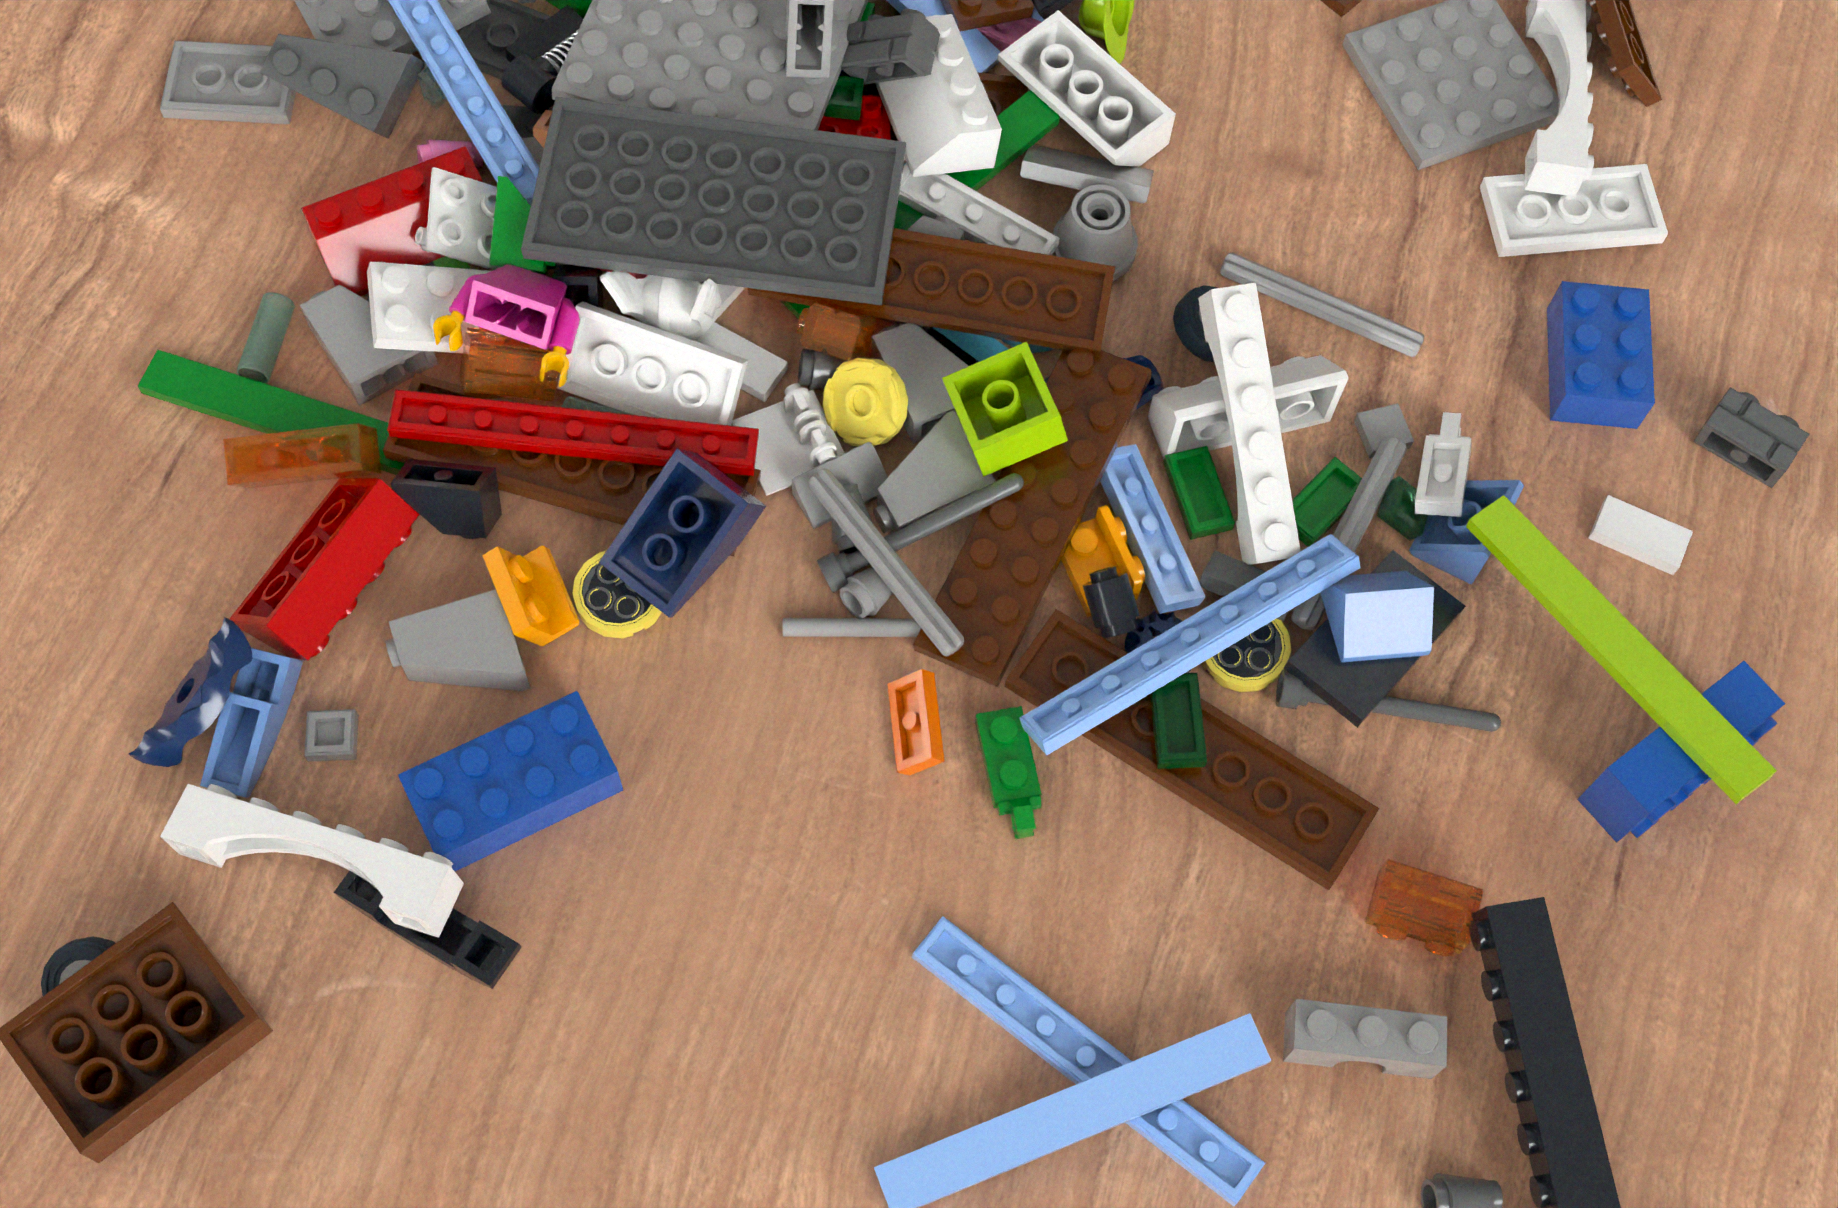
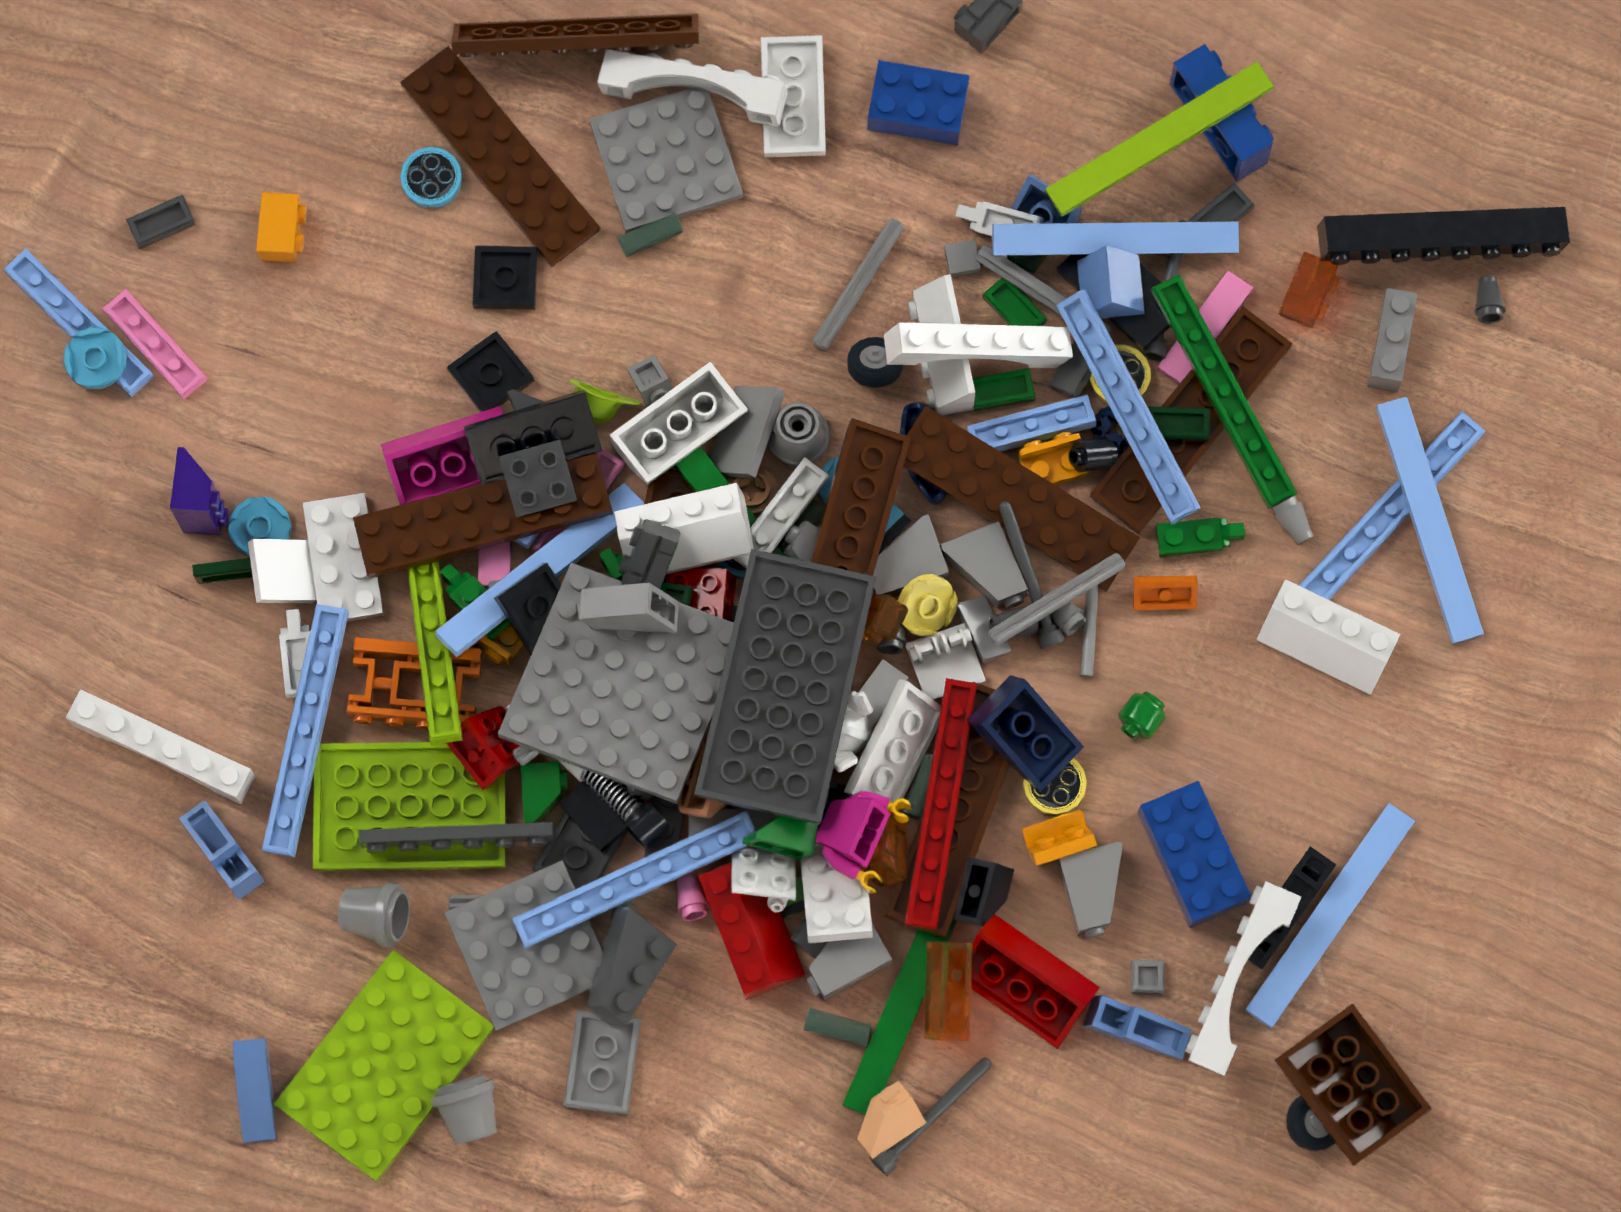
camera: 80 degrees left, 10 degrees up
(78, 406) = (887, 1159): none -> dark grey piece
(129, 405) = (889, 1119): none -> light nougat slope
(196, 698) = (1109, 1041): dark blue piece -> none
(426, 997) = (1329, 916): none -> light blue tile
(724, 701) = (1142, 715): none -> green head
(867, 965) = (1328, 637): none -> white slope
(1005, 409) = (958, 505): lime brick -> none
(1029, 192) = (763, 481): none -> medium nougat gear
(1051, 904) = (1293, 519): none -> light grey cone
(1150, 67) = (650, 380): none -> light grey bracket
(1235, 783) = (1223, 391): none -> green tile
(1343, 59) = (650, 236): none -> sand green piece
(1367, 775) = (1217, 314): none -> bright pink tile
(1454, 628) = (1130, 237): none -> light blue tile
(1521, 776) = (1226, 207): none -> dark grey tile
(1640, 535) = (1052, 103): white tile -> none

